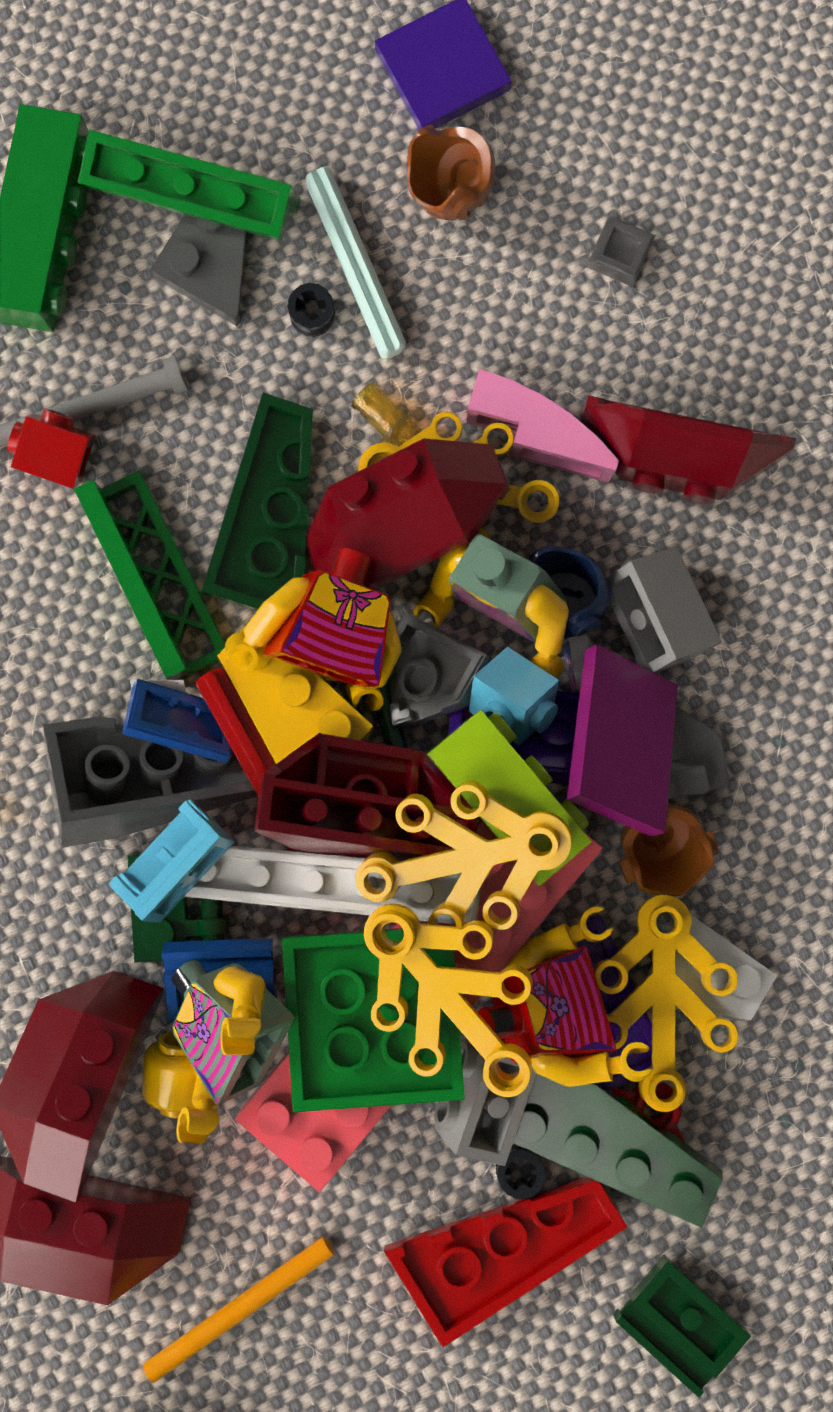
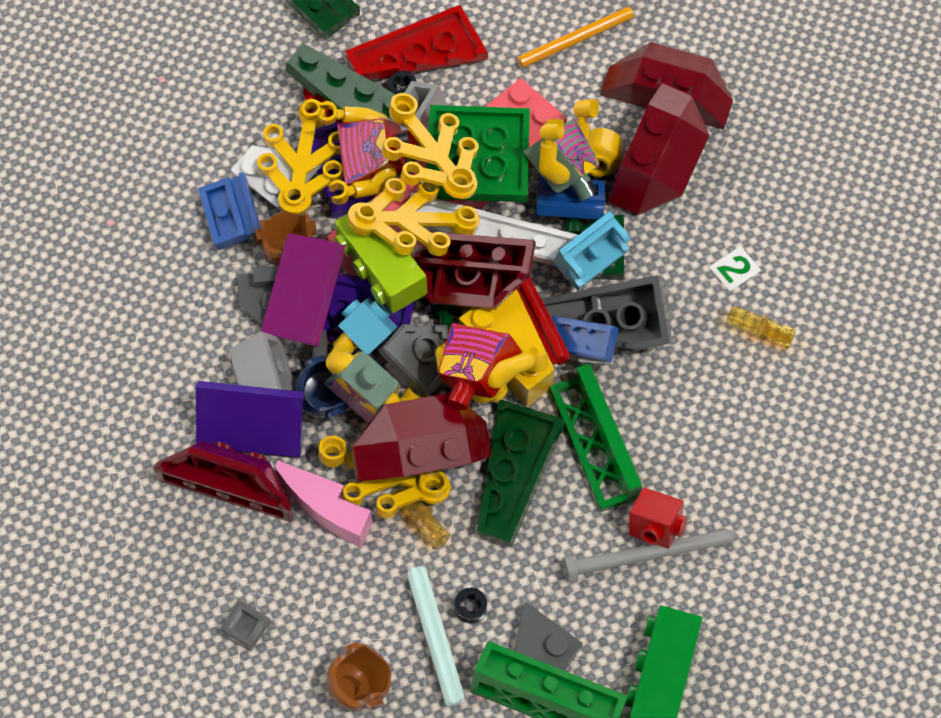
camera: 170 degrees left, 20 degrees down
(670, 534) = (250, 418): none -> dark purple tile
(764, 897) = (229, 210): none -> blue plate

